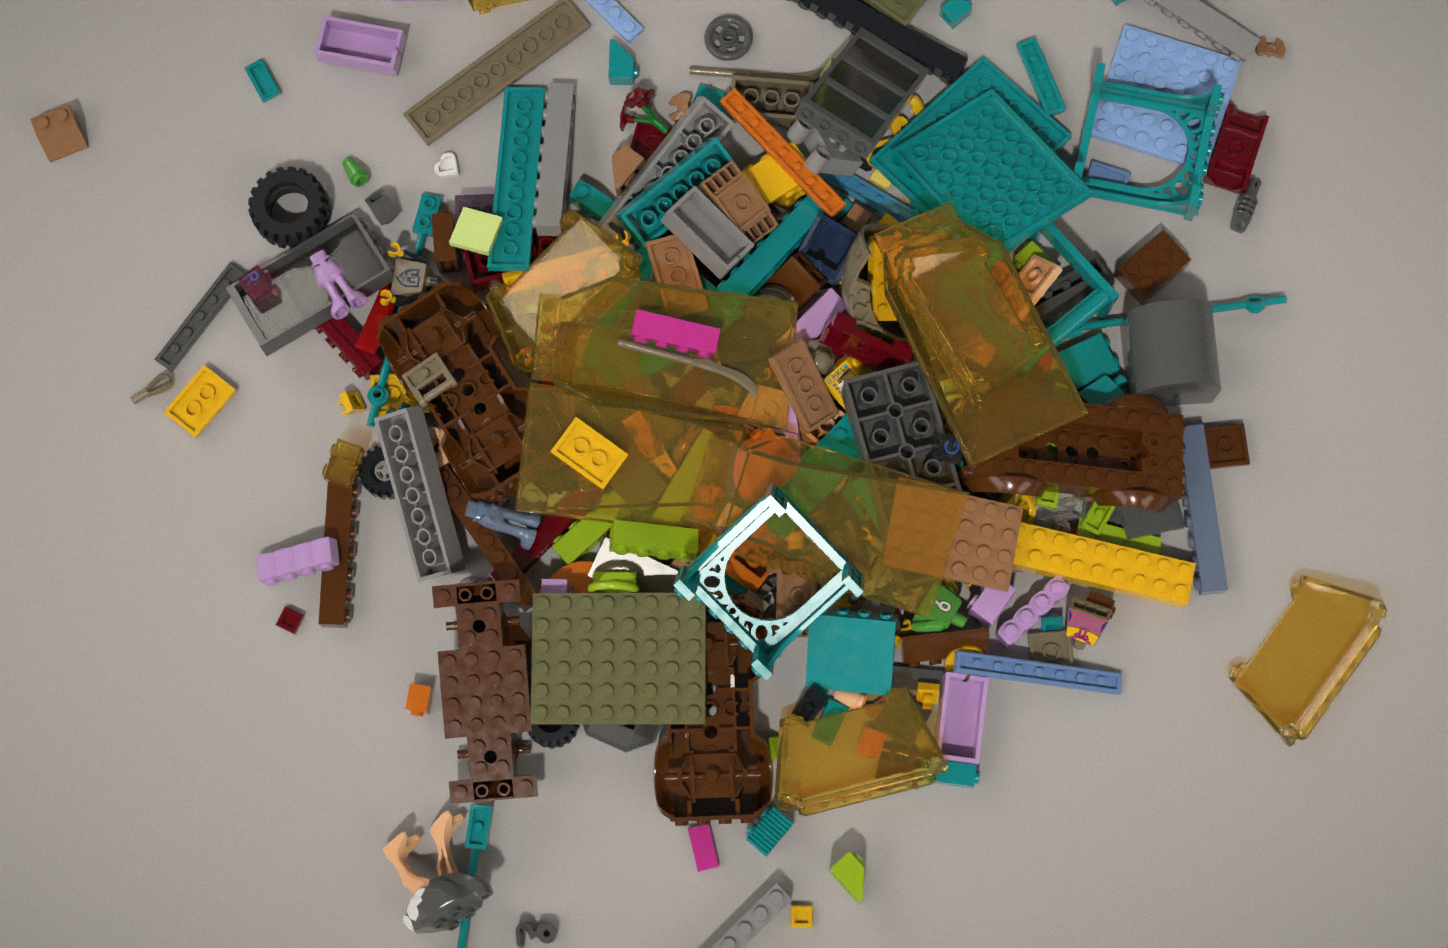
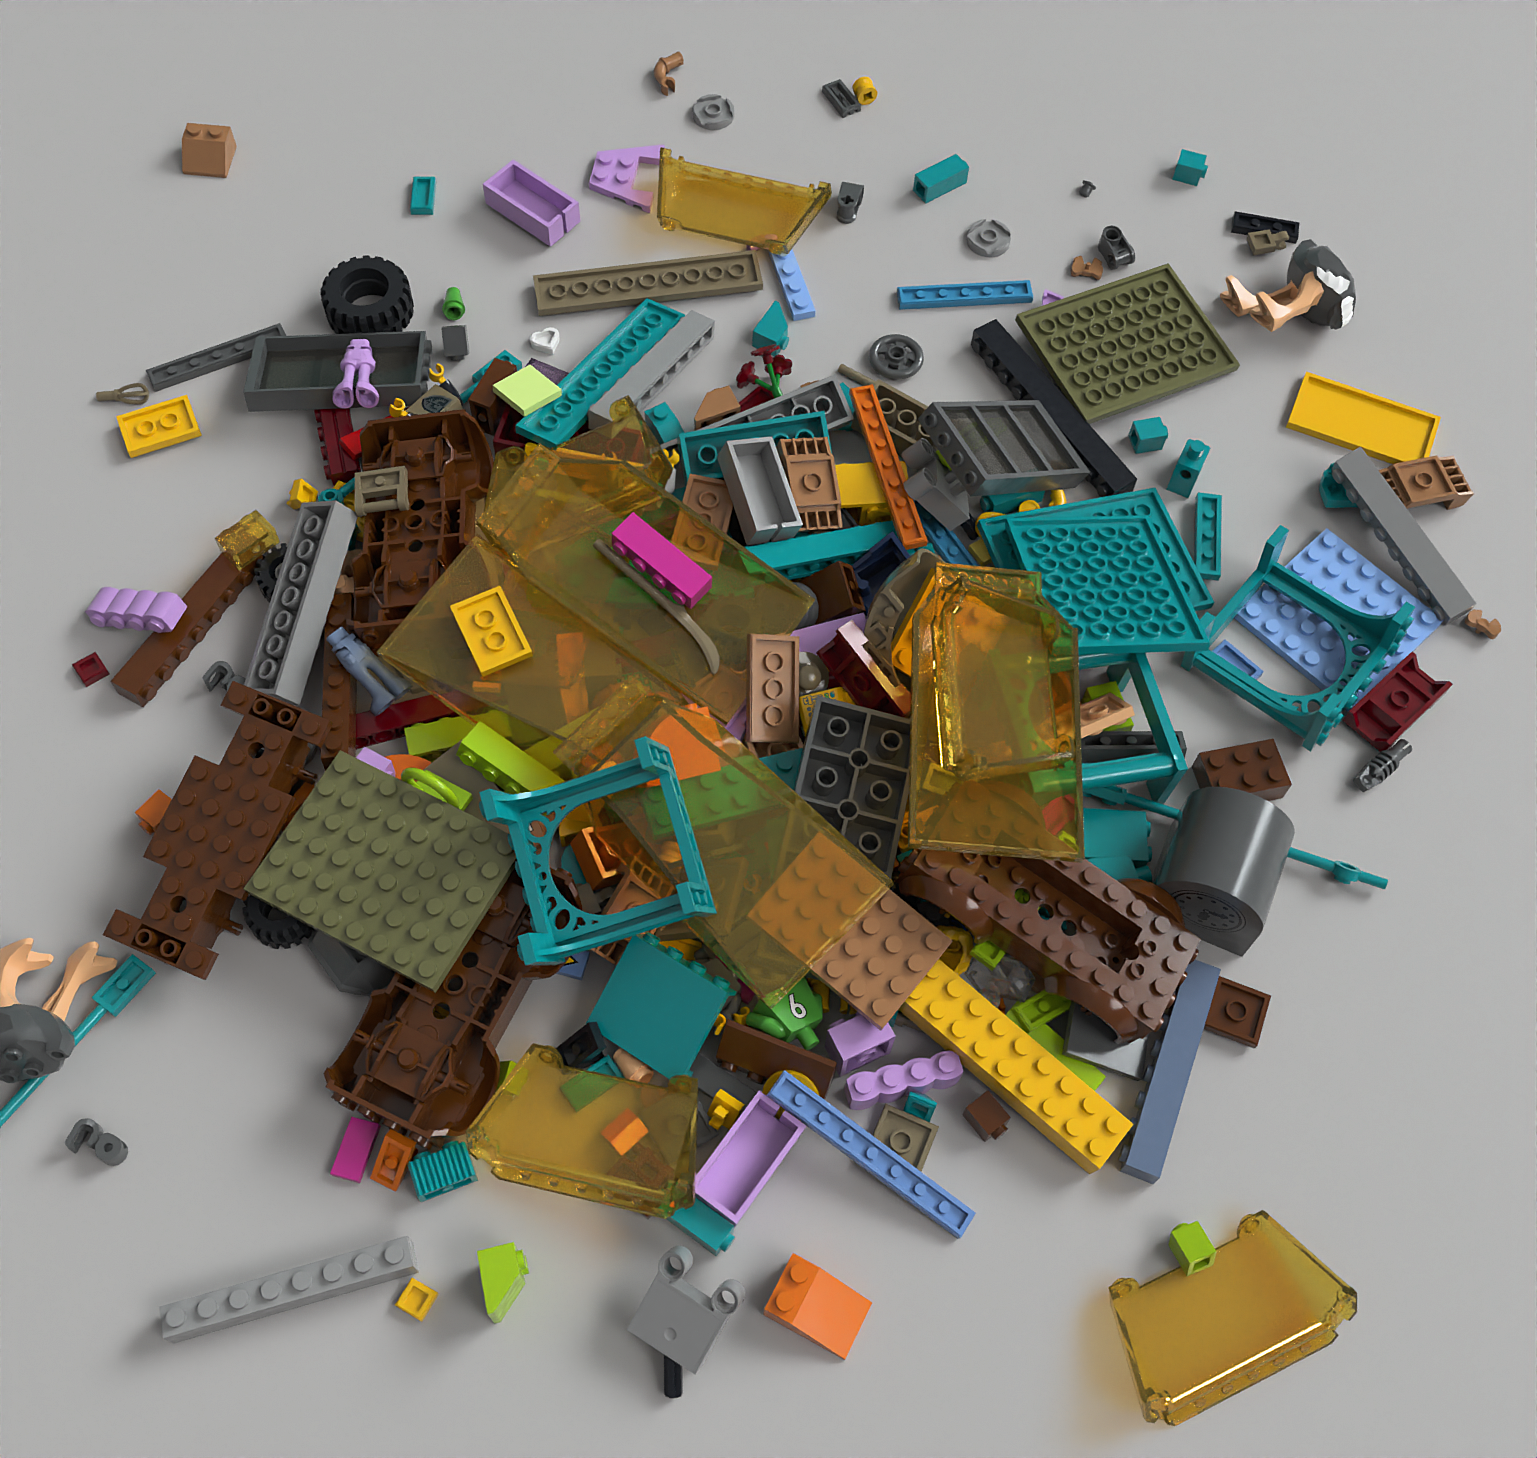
camera: 20 degrees right, 15 degrees down
(256, 283) = (286, 345): clear pink brick -> none
(408, 577) = (222, 669): none -> dark grey leg
(734, 841) = (393, 1159): none -> orange slope
(947, 449) = (894, 828): black brick -> none
(977, 839) = (682, 1318): none -> light grey piece
(1000, 23) = (1192, 460): none -> teal torso
(1053, 785) = (817, 1306): none -> orange slope
(1086, 622) = (960, 1123): torso -> none
(1267, 622) = (1191, 1247): none -> lime brick

